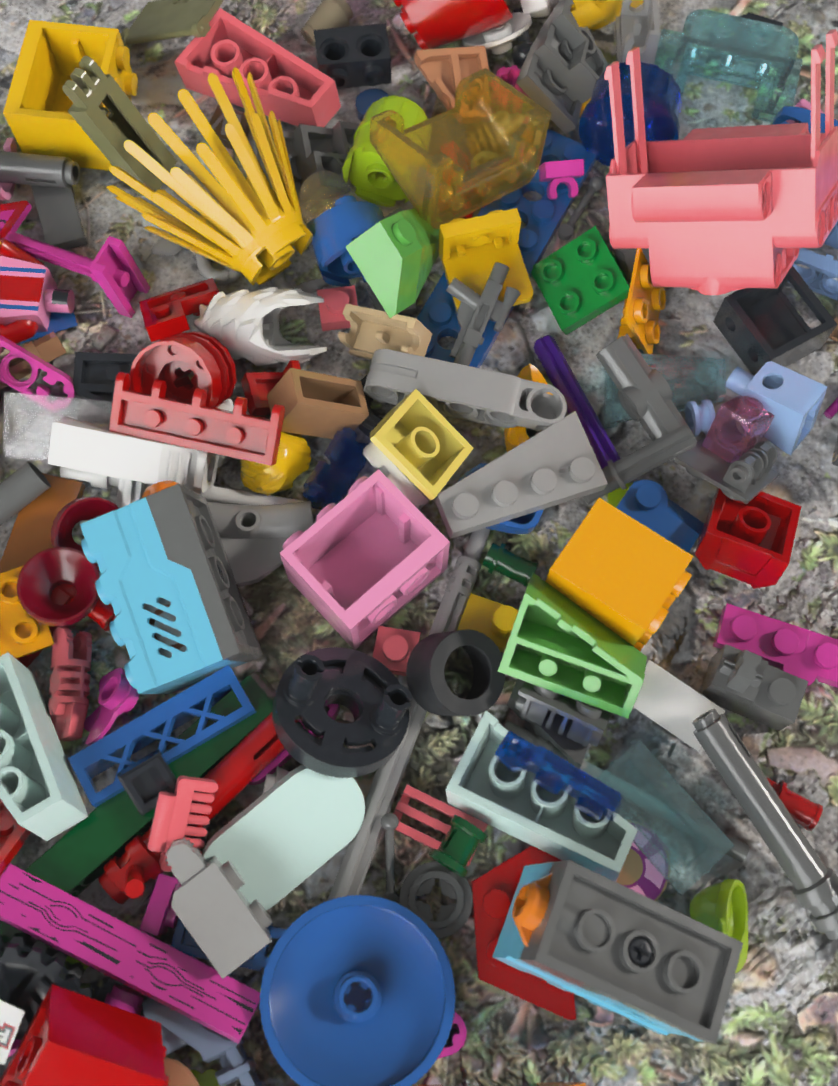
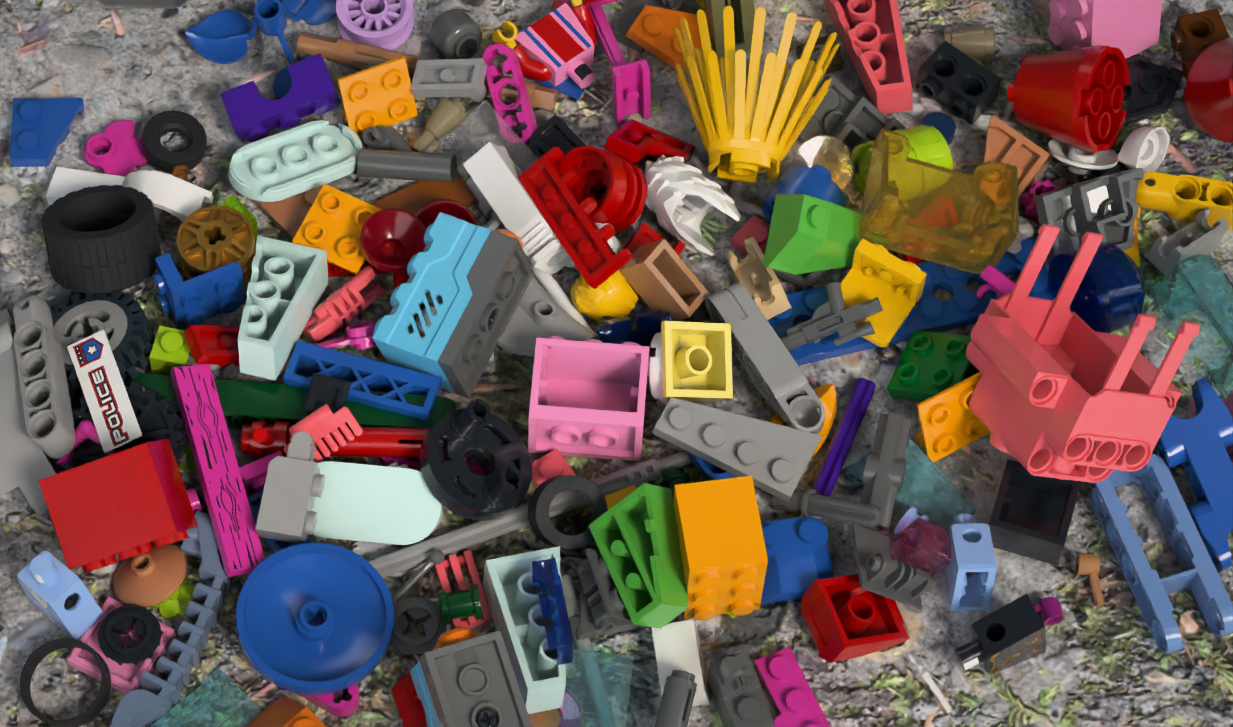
camera: 45 degrees right, 10 degrees down
(94, 211) = (656, 34): none -> orange wing

